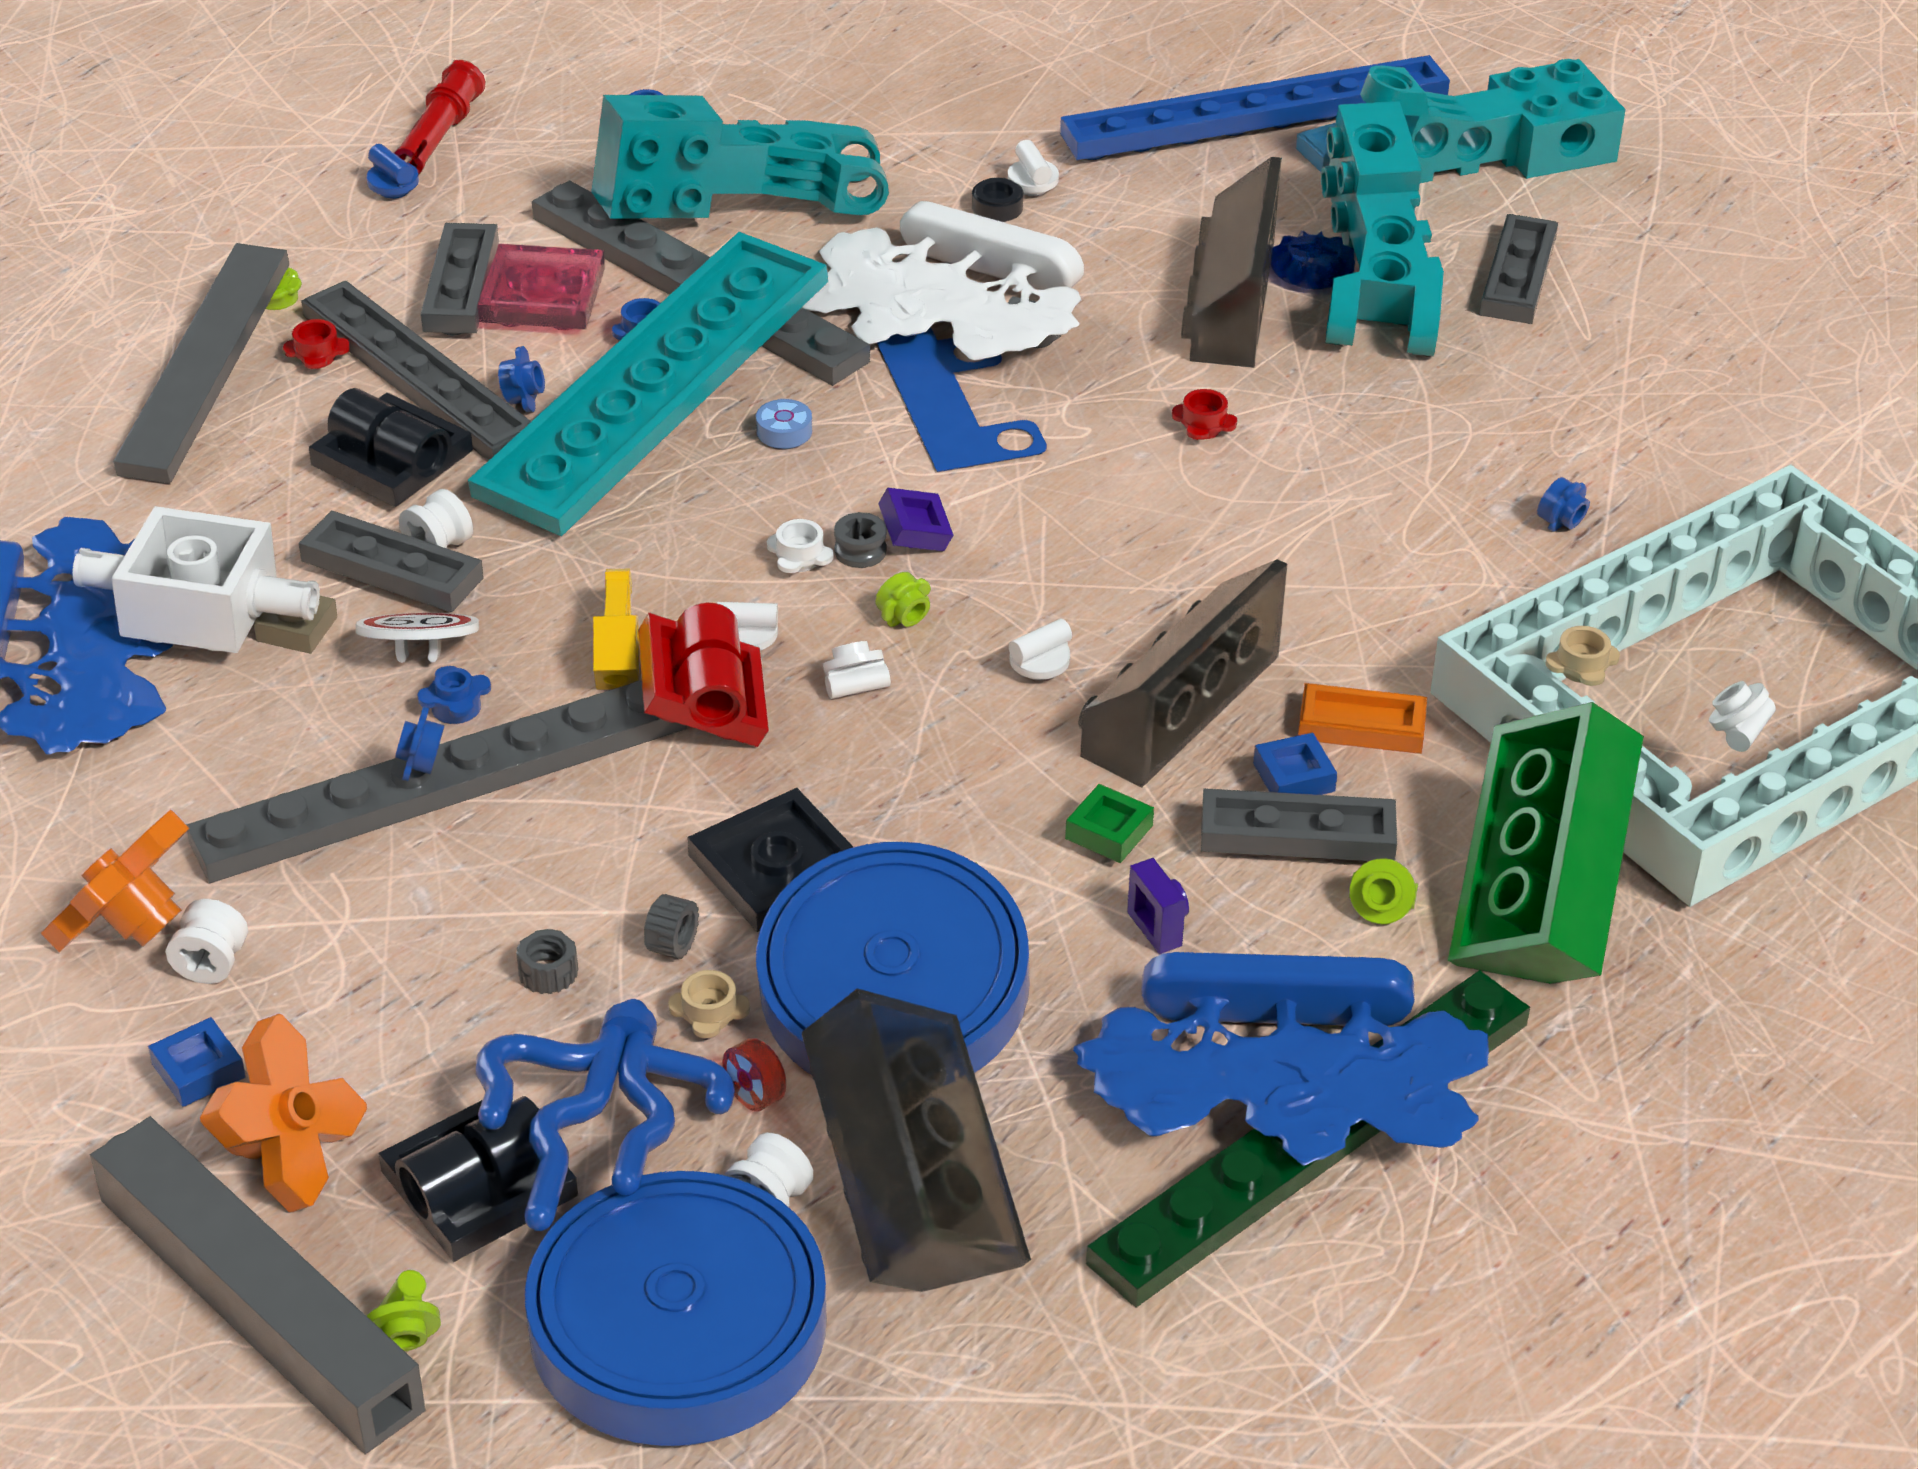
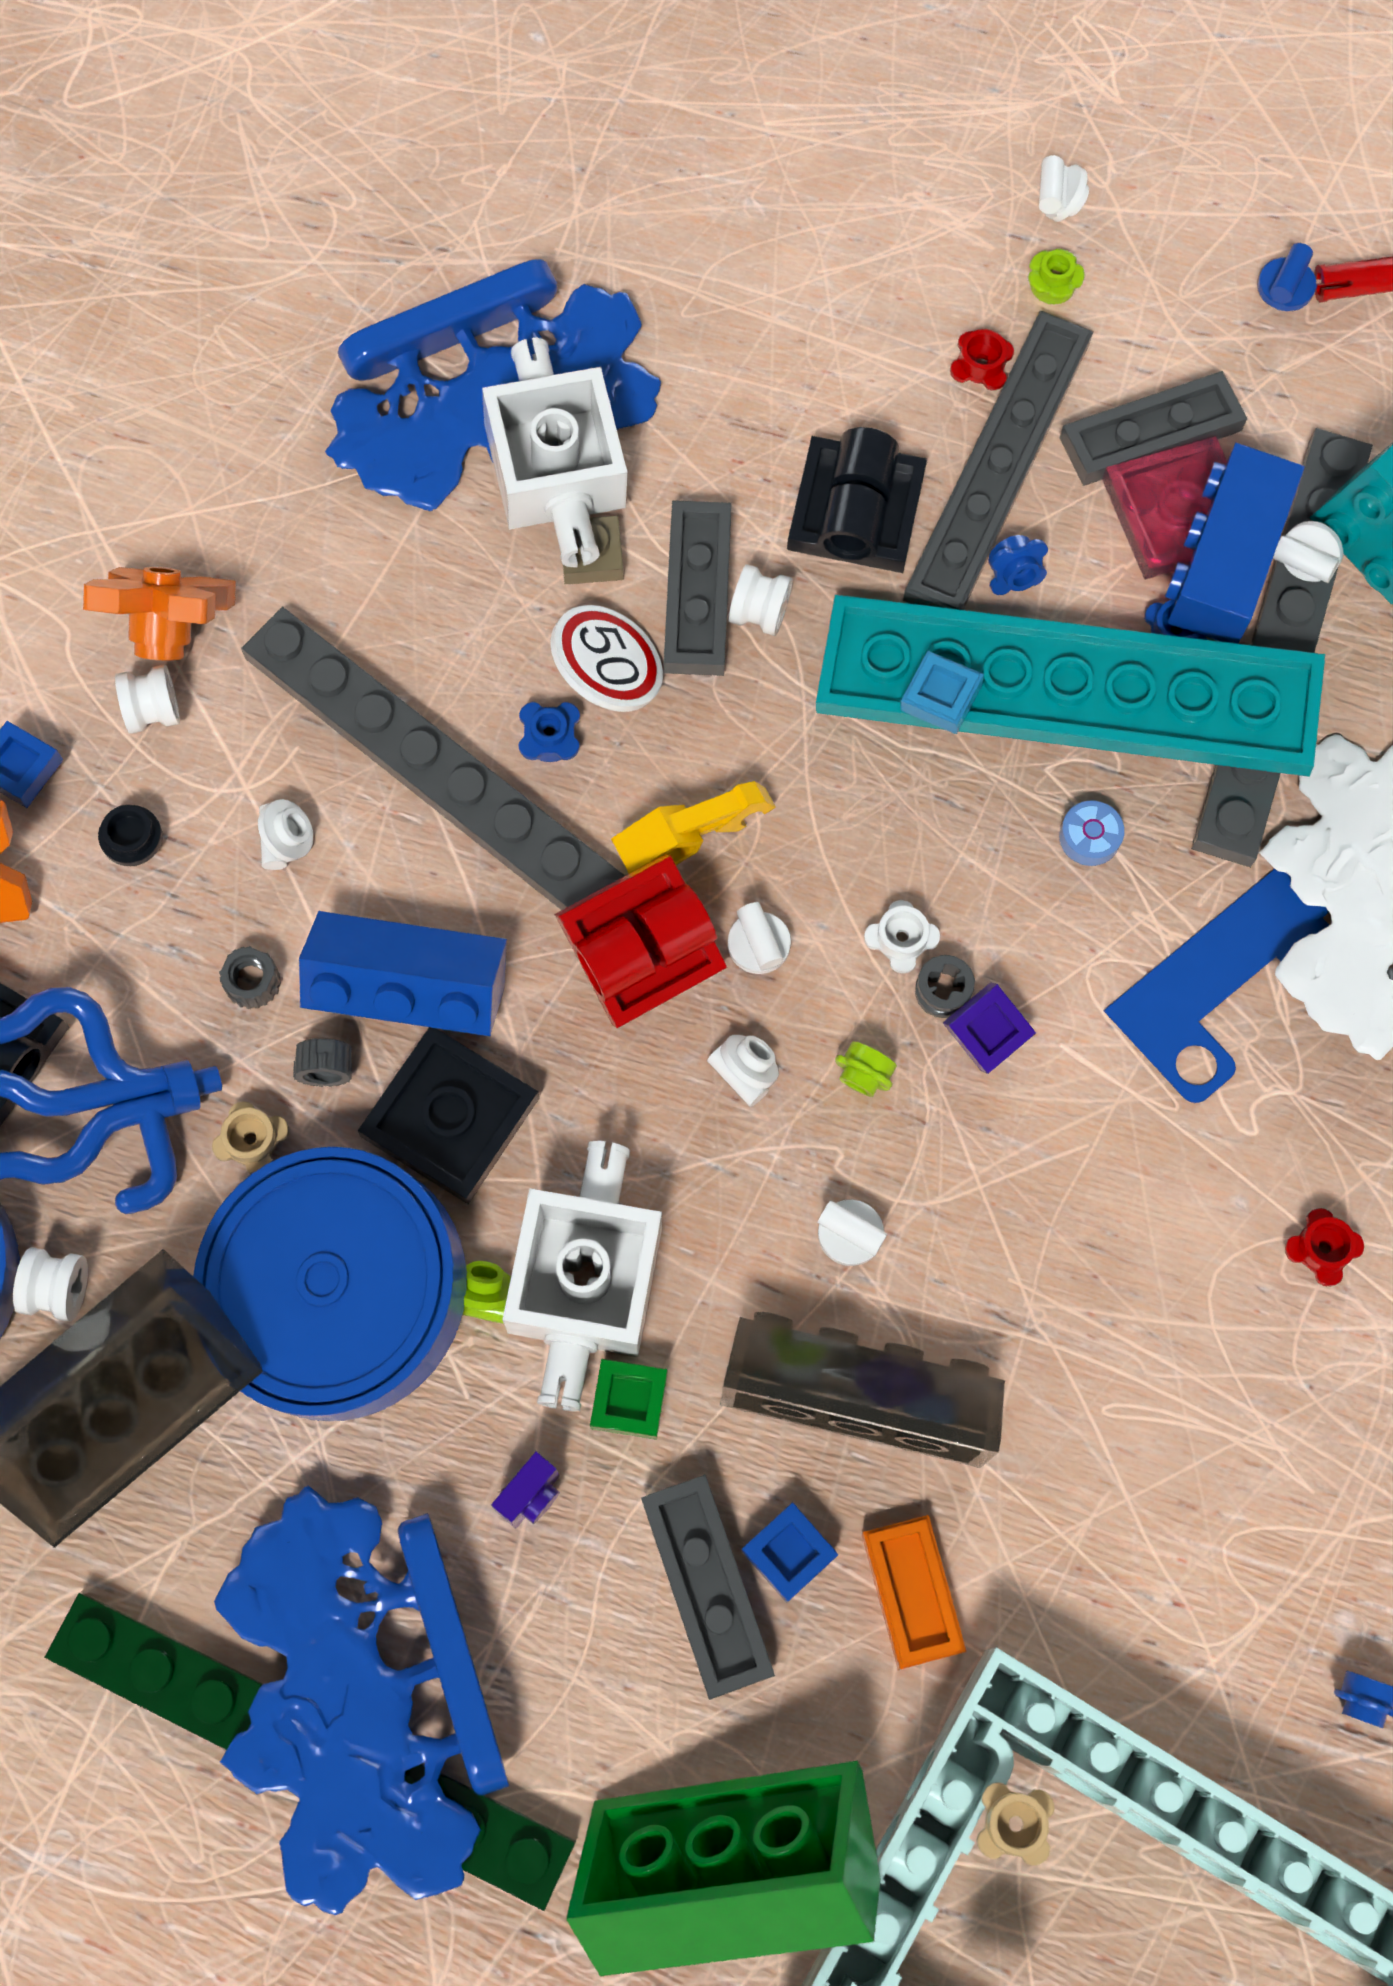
camera: 65 degrees right, 30 degrees up
(201, 364) = (896, 280): dark grey tile -> none
(202, 251) = (1062, 188): none -> white plate
(336, 1002) = (130, 835): none -> black plate
(417, 896) = (283, 833): none -> white plate
(419, 744) = (420, 746): blue plate -> none
(608, 248) = (1233, 543): none -> blue brick
(611, 436) = (942, 692): none -> dark azure tile
(626, 834) = (402, 973): none -> blue brick
(645, 218) = (1310, 551): none -> white plate
(755, 1073) = (169, 1217): clear red tile -> none
(987, 798) = (556, 1239): none -> white brick
(1383, 891) = (649, 1705): lime plate -> none

